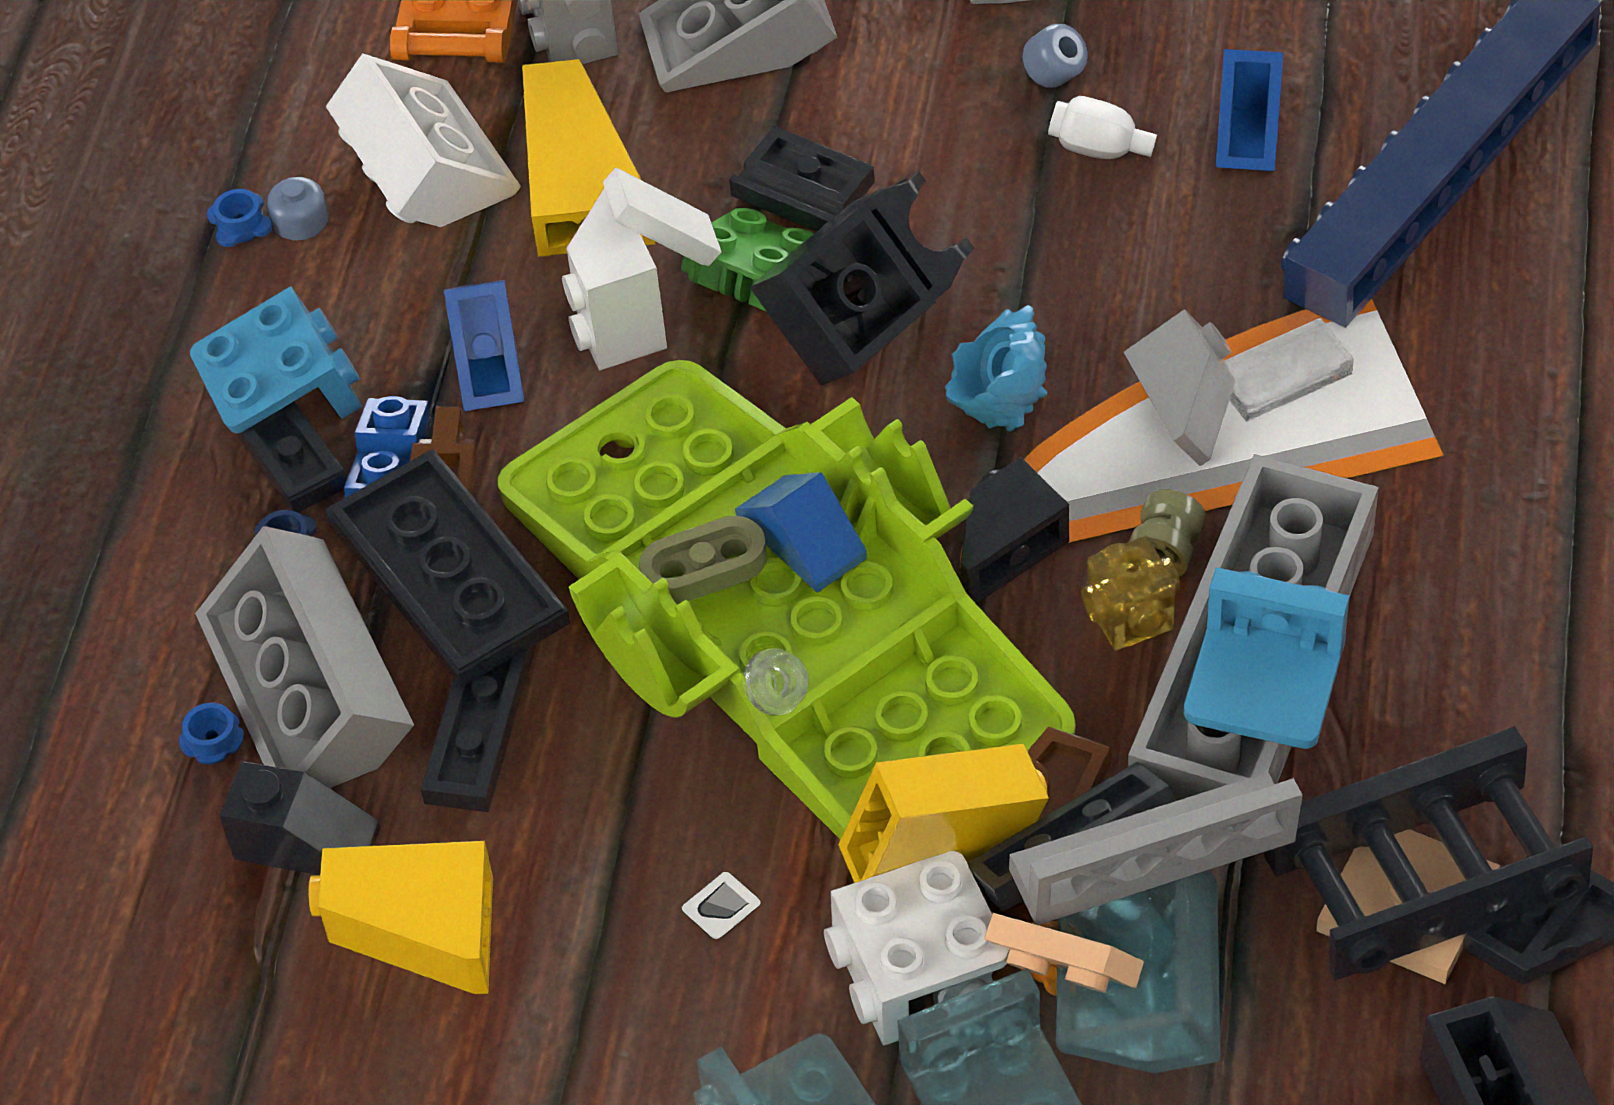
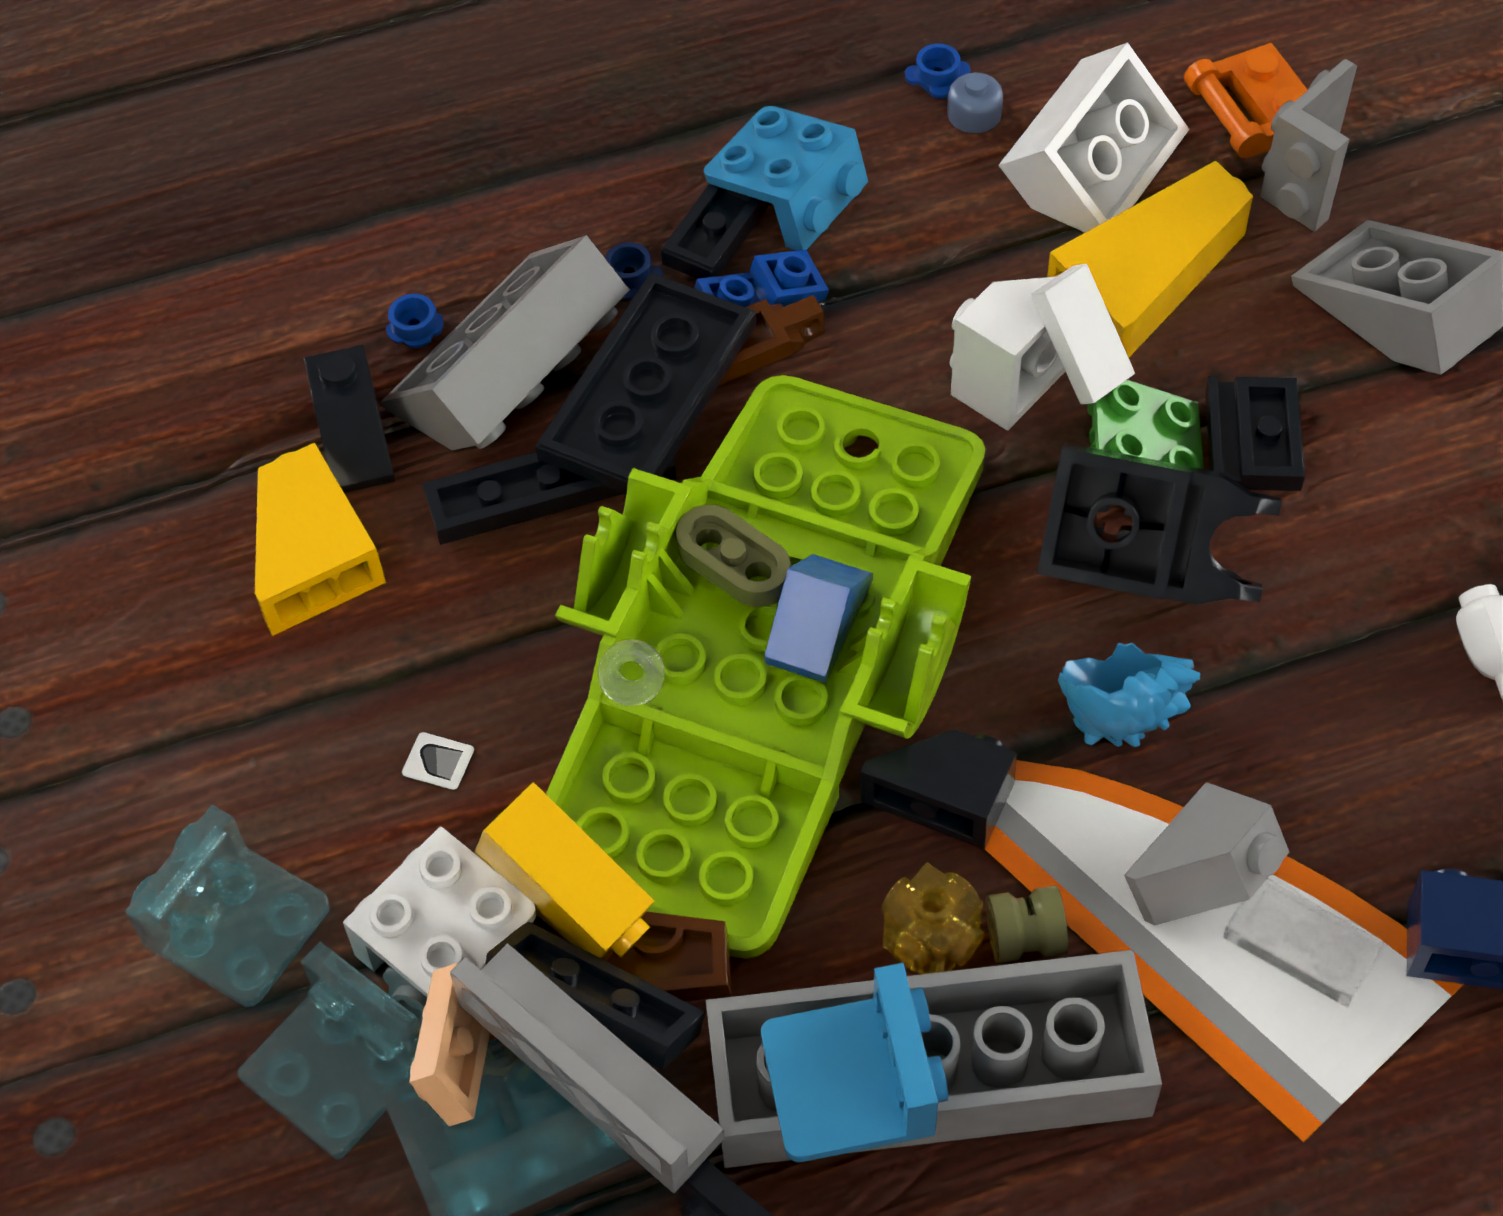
camera: 60 degrees right, 5 degrees up
(484, 345) = (899, 295): blue slope -> none

